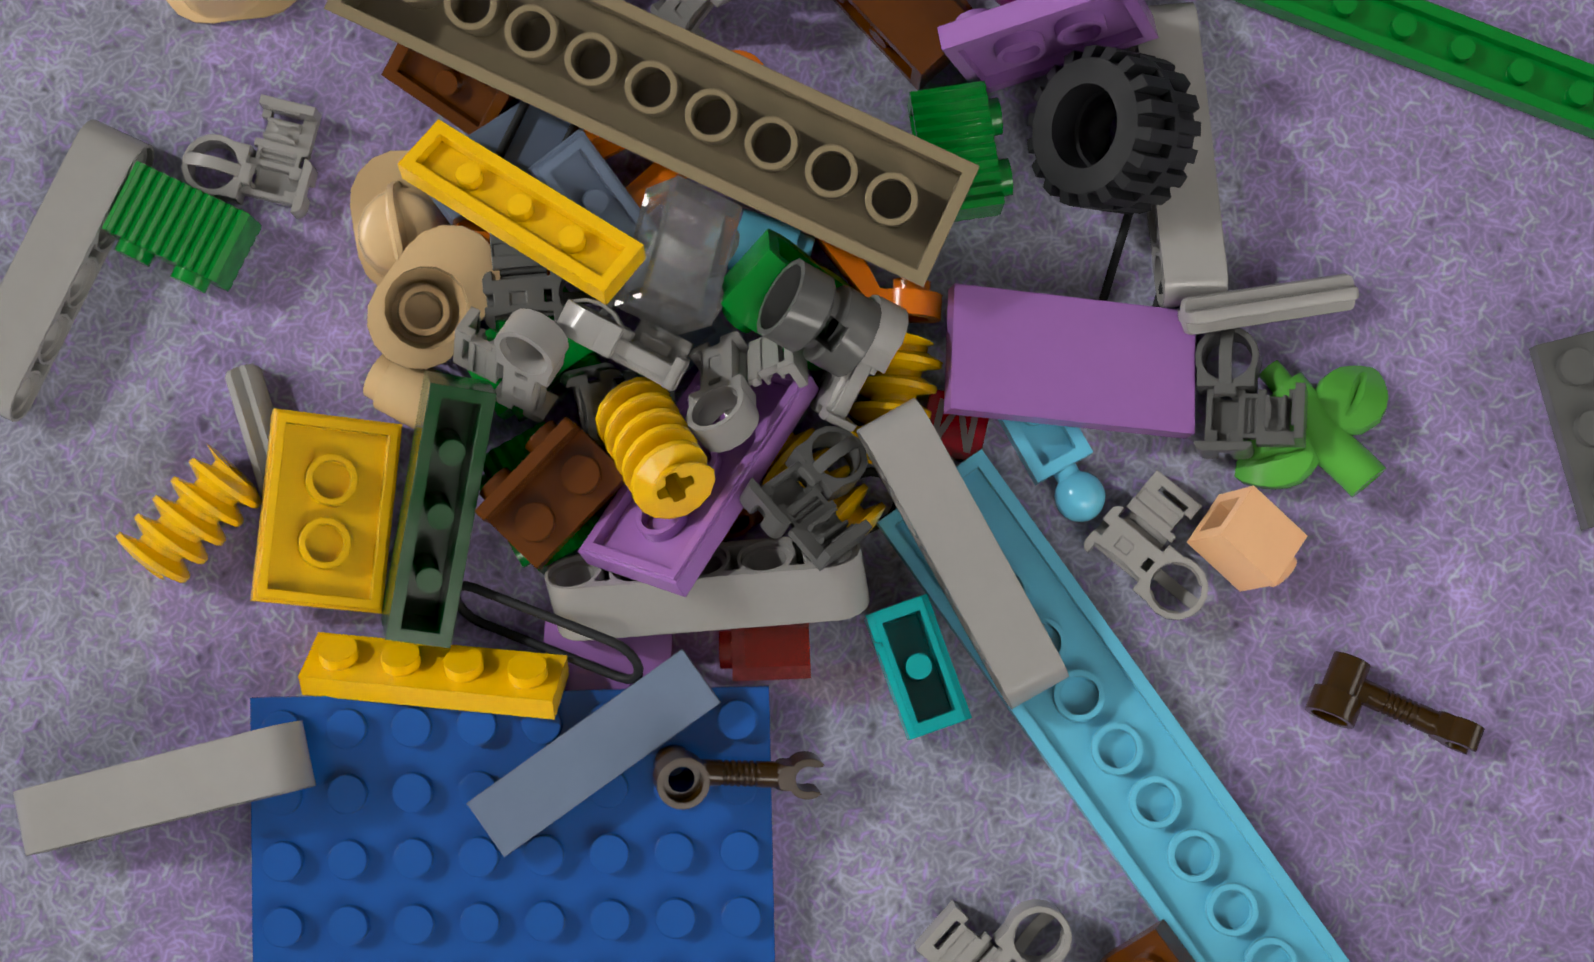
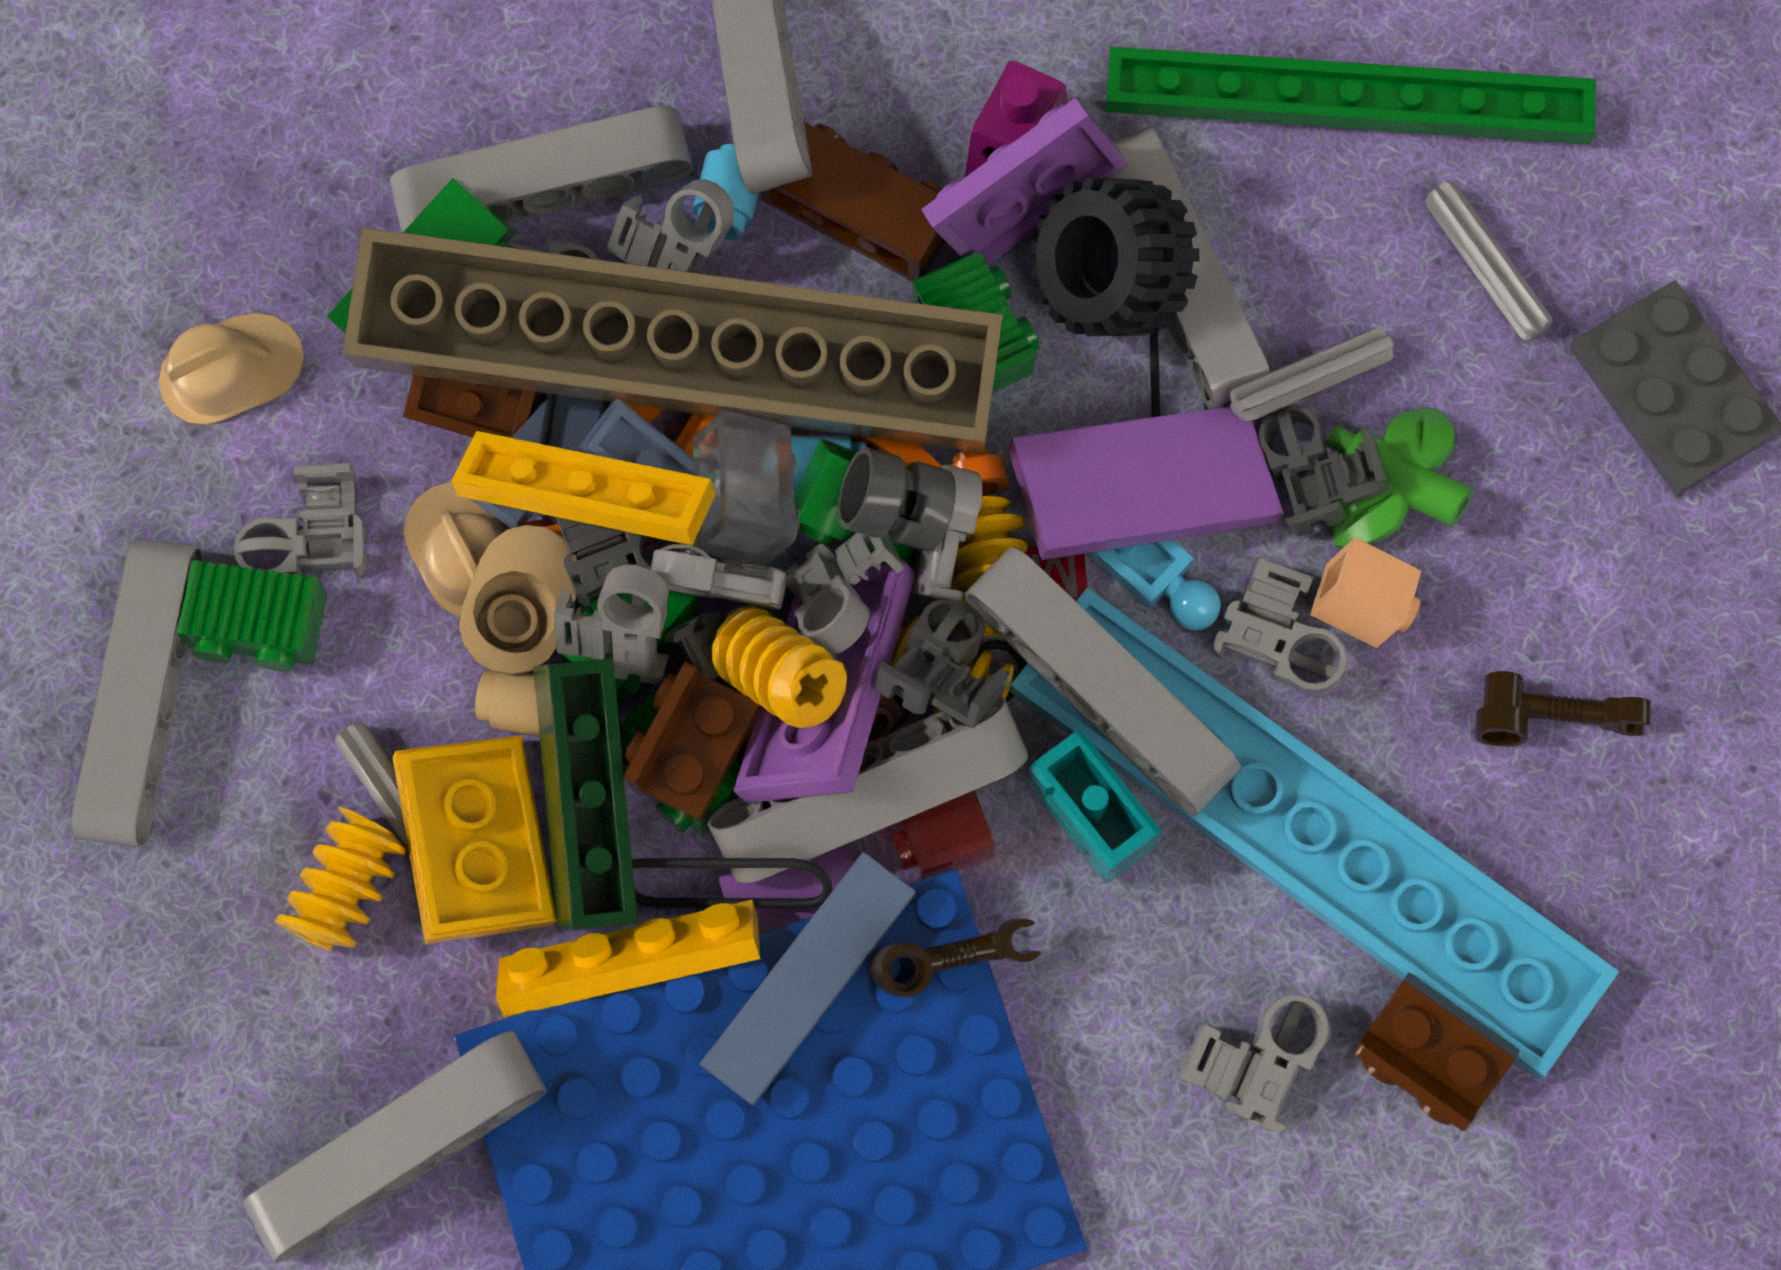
camera: 15 degrees left, 10 degrees down
(1480, 238) = (1488, 261): none -> light grey axle

